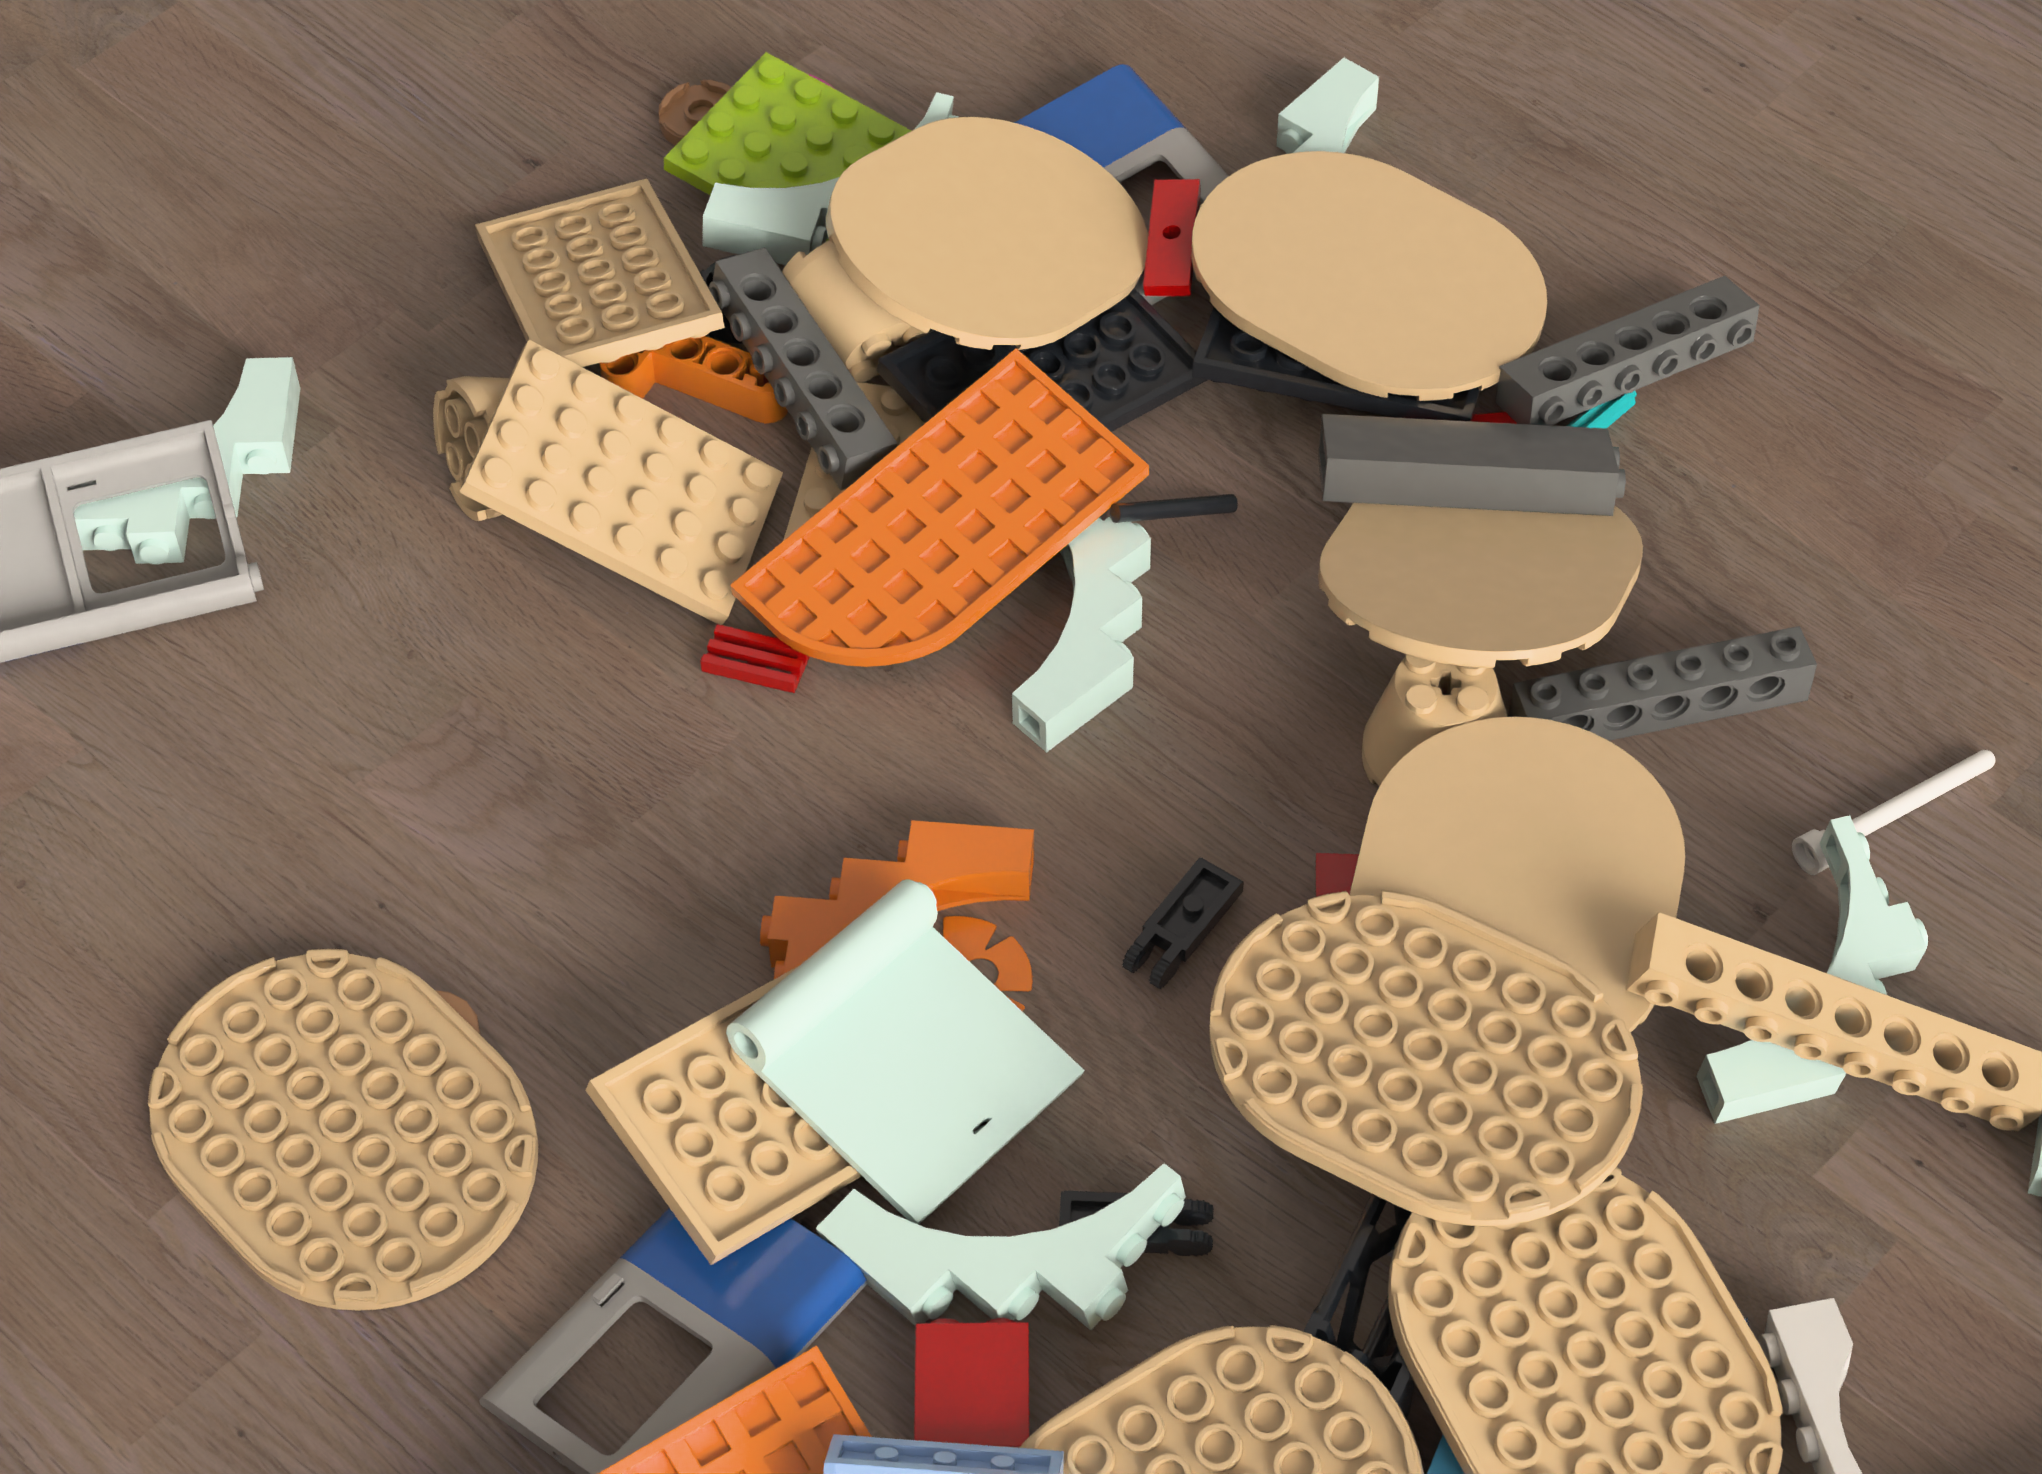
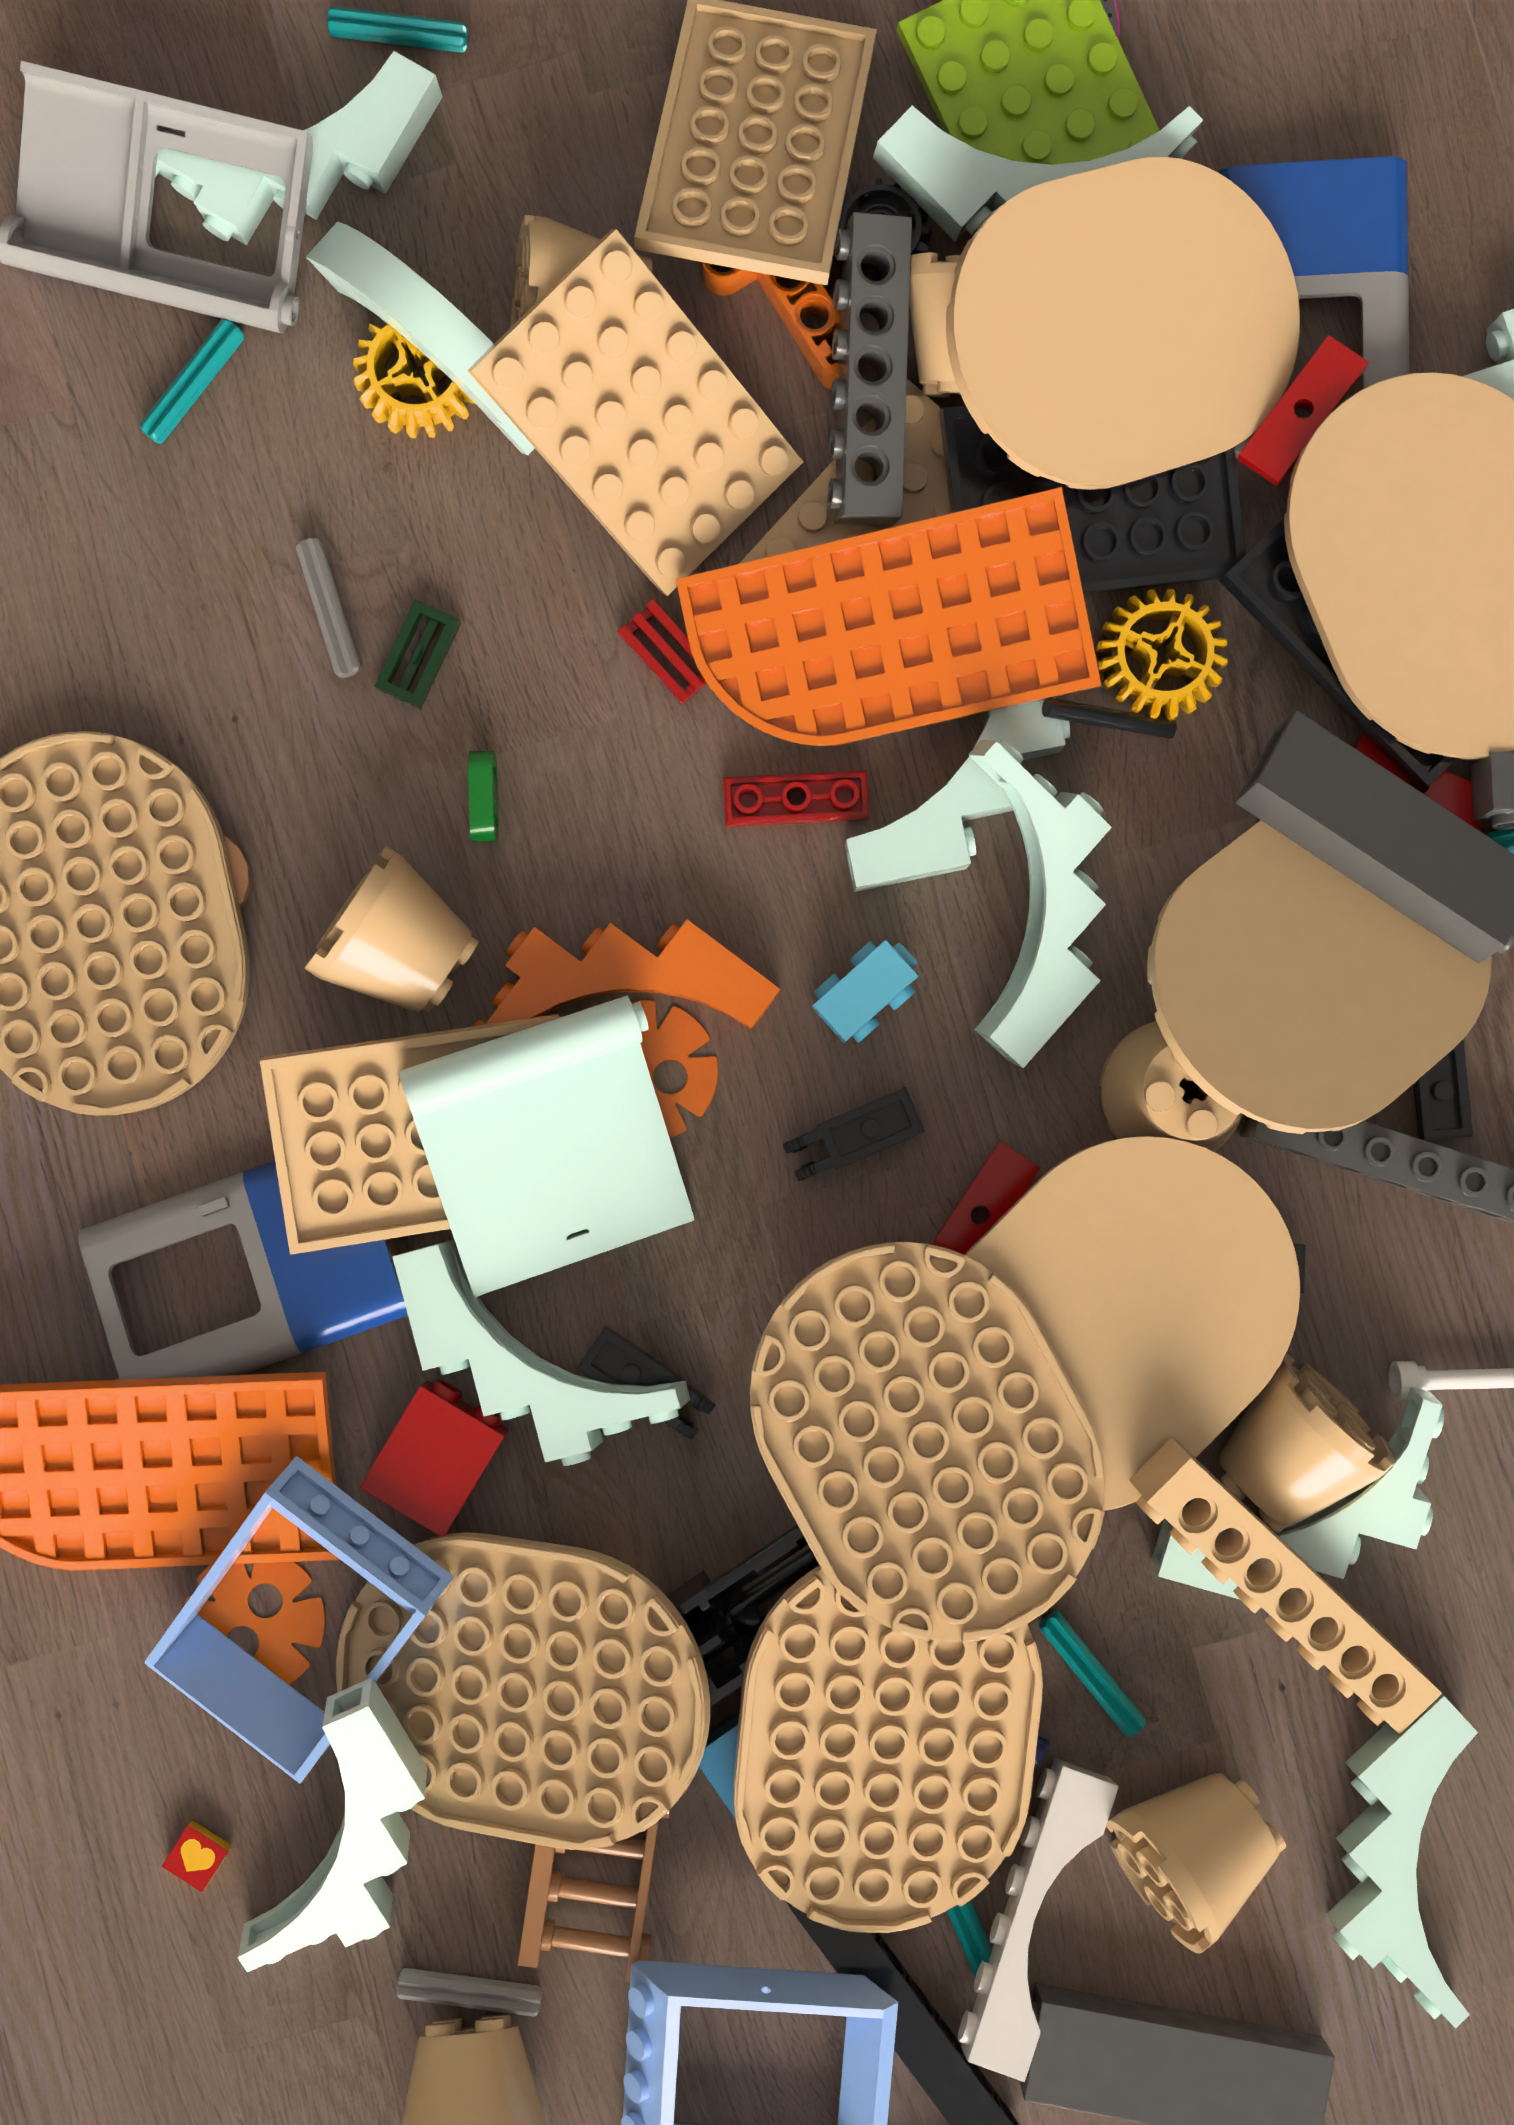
camera: 30 degrees right, 35 degrees up
(191, 672) = (192, 381): none -> teal axle
(232, 357) = (398, 29): none -> teal axle
(395, 502) = (414, 309): none -> light aqua arch
(397, 551) = (401, 382): none -> yellow gear
(422, 773) = (328, 607): none -> light grey axle
(528, 801) = (401, 645): none -> dark green tile
(649, 963) = (394, 938): none -> tan cone
(659, 836) = (483, 796): none -> green beam
(944, 707) = (764, 800): none -> red tile
(1110, 802) = (879, 978): none -> medium azure brick
(1187, 448) = (1178, 661): none -> yellow gear
(1190, 596) = (1062, 903): none -> light aqua arch
(1657, 622) = (1444, 1099): none -> black hinge
(1751, 1243) = (1092, 1673): none -> teal axle
(1768, 899) = (1301, 1448): none -> tan cone
(1946, 1318) = (1196, 1854): none -> tan cone

